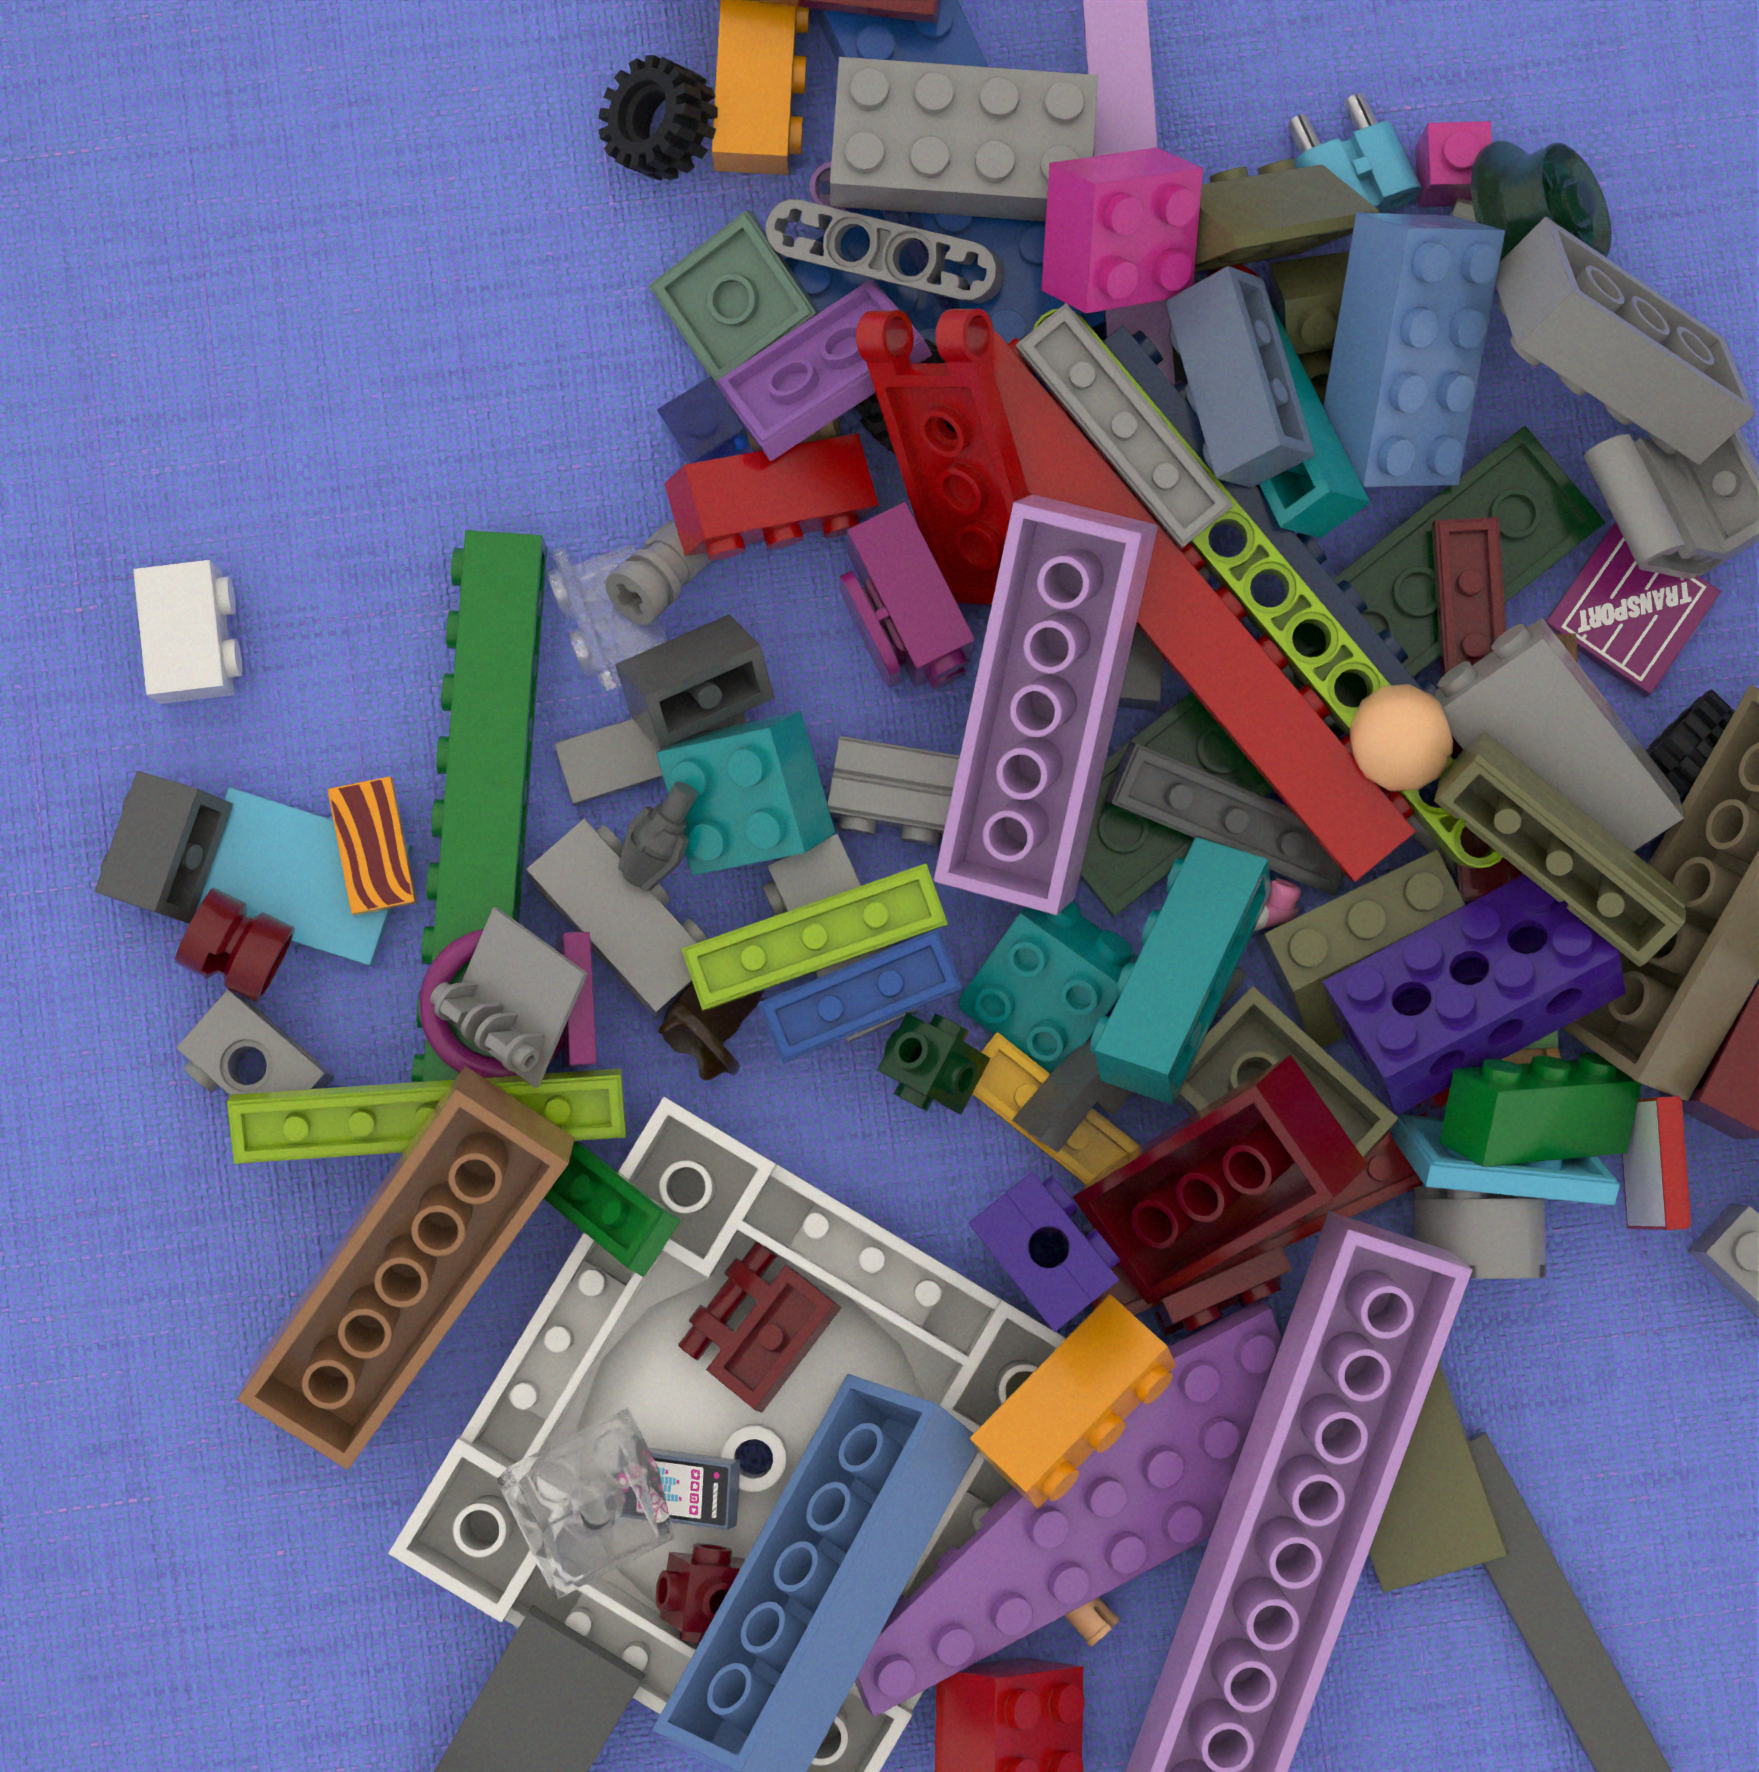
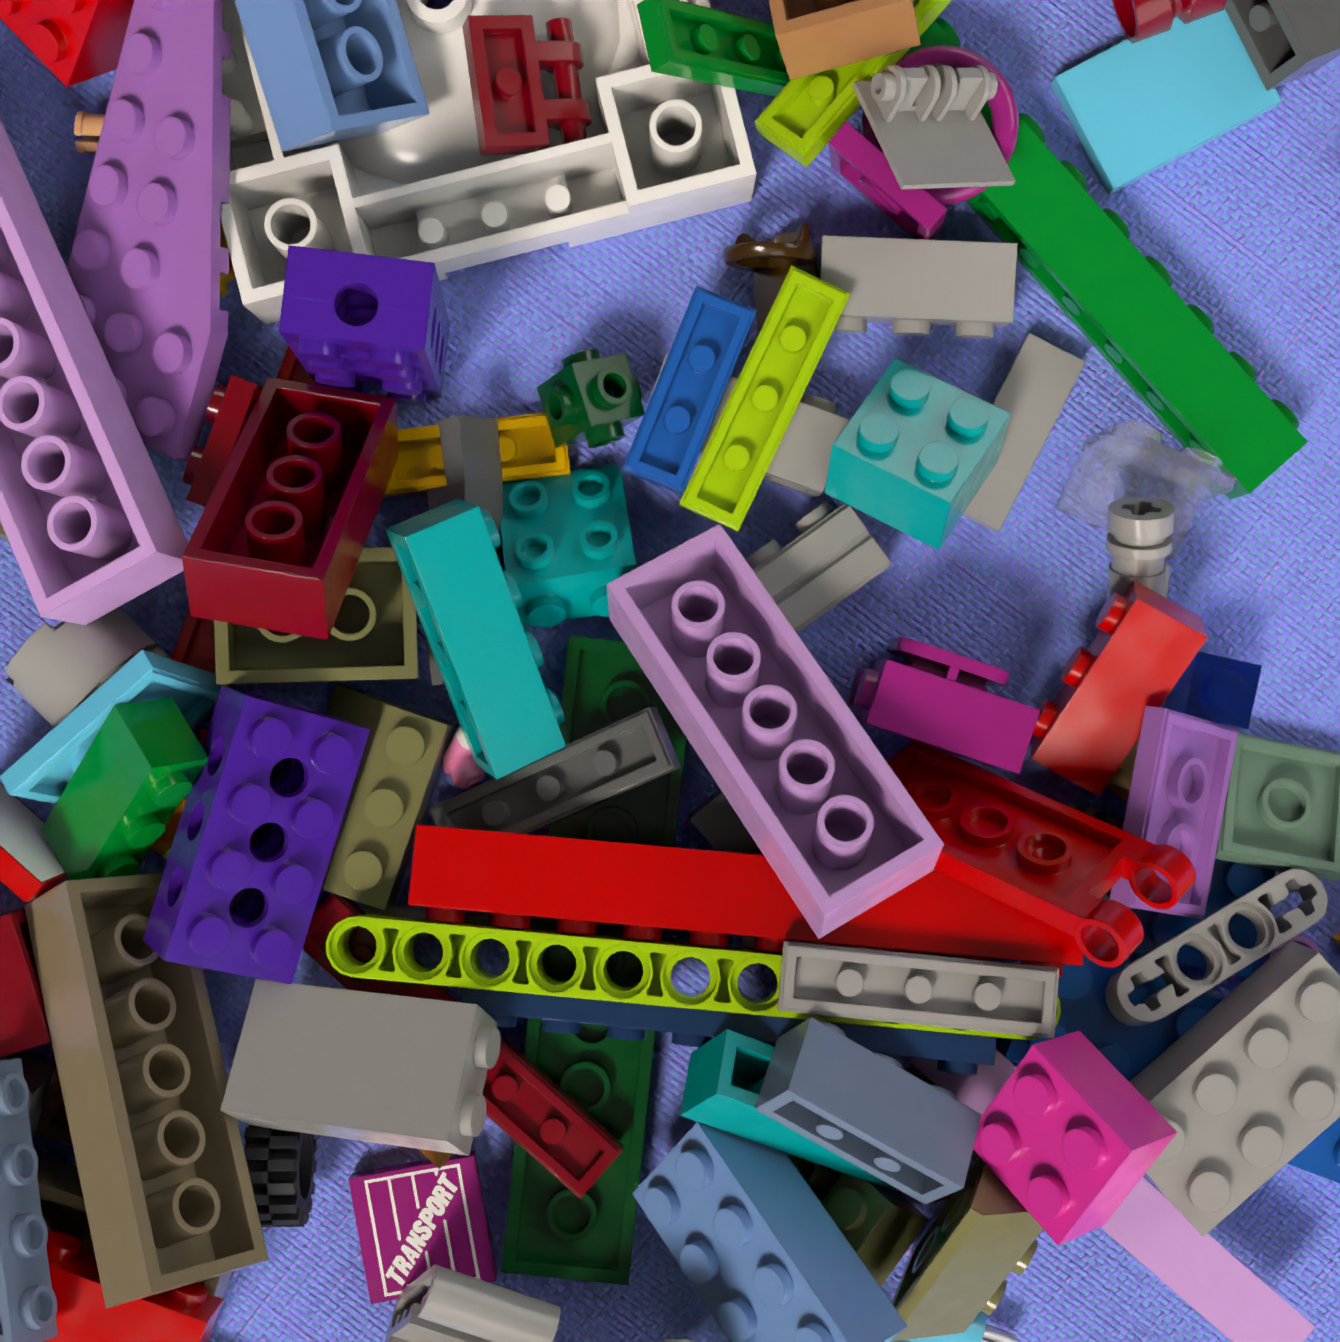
camera: 140 degrees right, 5 degrees up
(372, 846) = (1140, 157): tile -> none
(657, 839) = (947, 353): dark grey piece -> none
(695, 681) = (1033, 499): dark grey brick -> none
(1075, 1403) = (236, 234): light orange brick -> none
(1401, 738) = (483, 961): light nougat hair -> none
(1561, 849) = (282, 995): olive brick -> none

